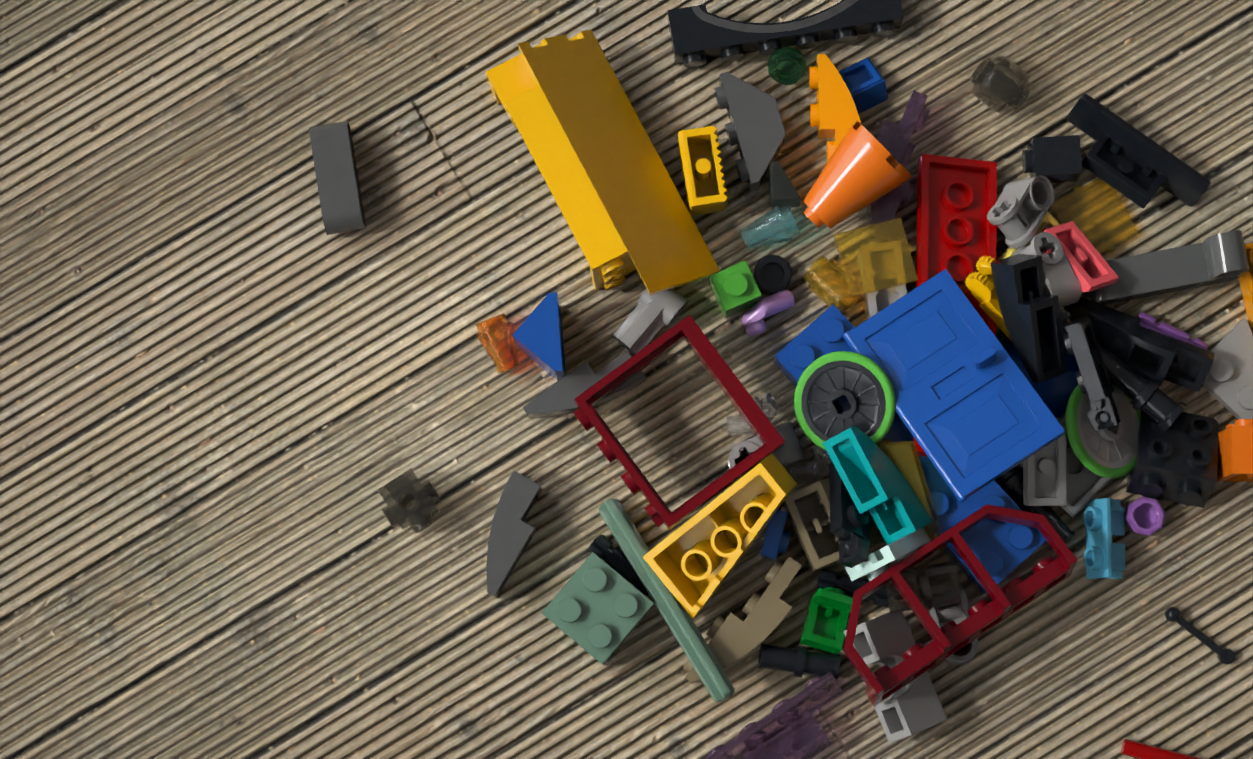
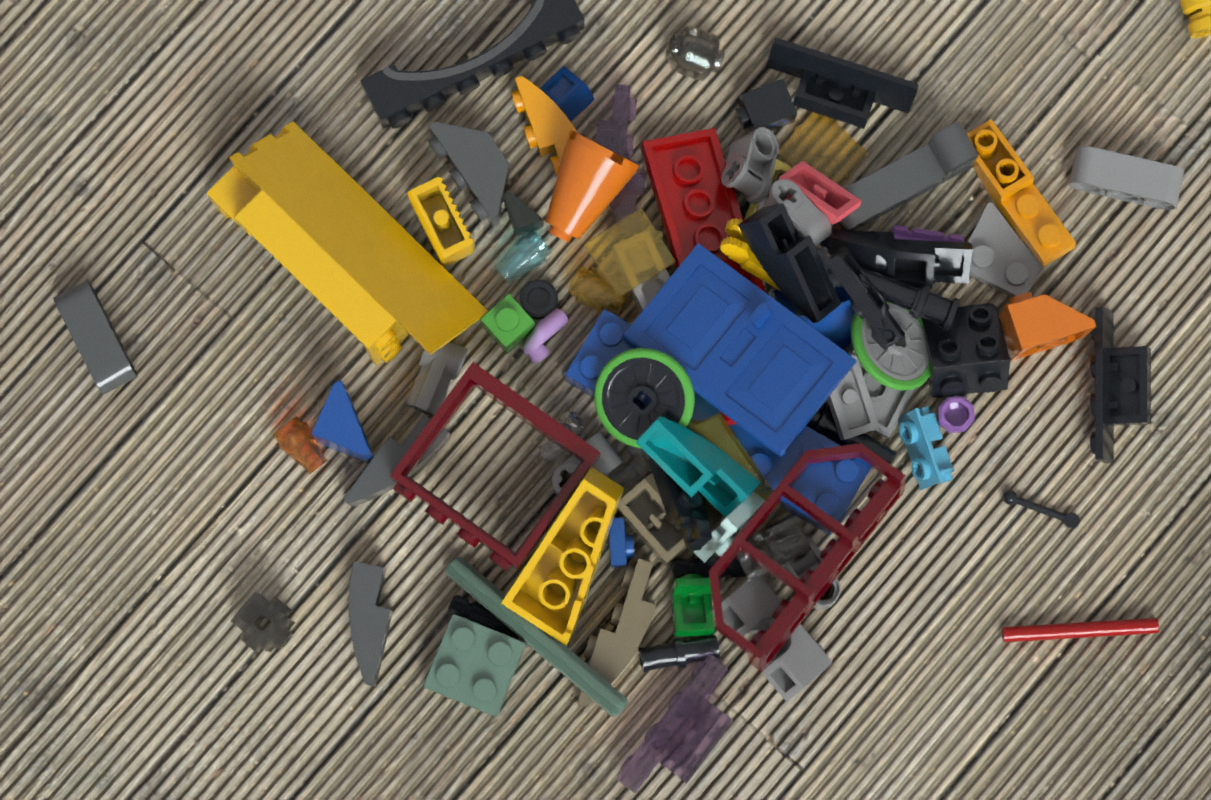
camera: 30 degrees left, 0 degrees up
(786, 65) = (489, 97): clear green plate -> none

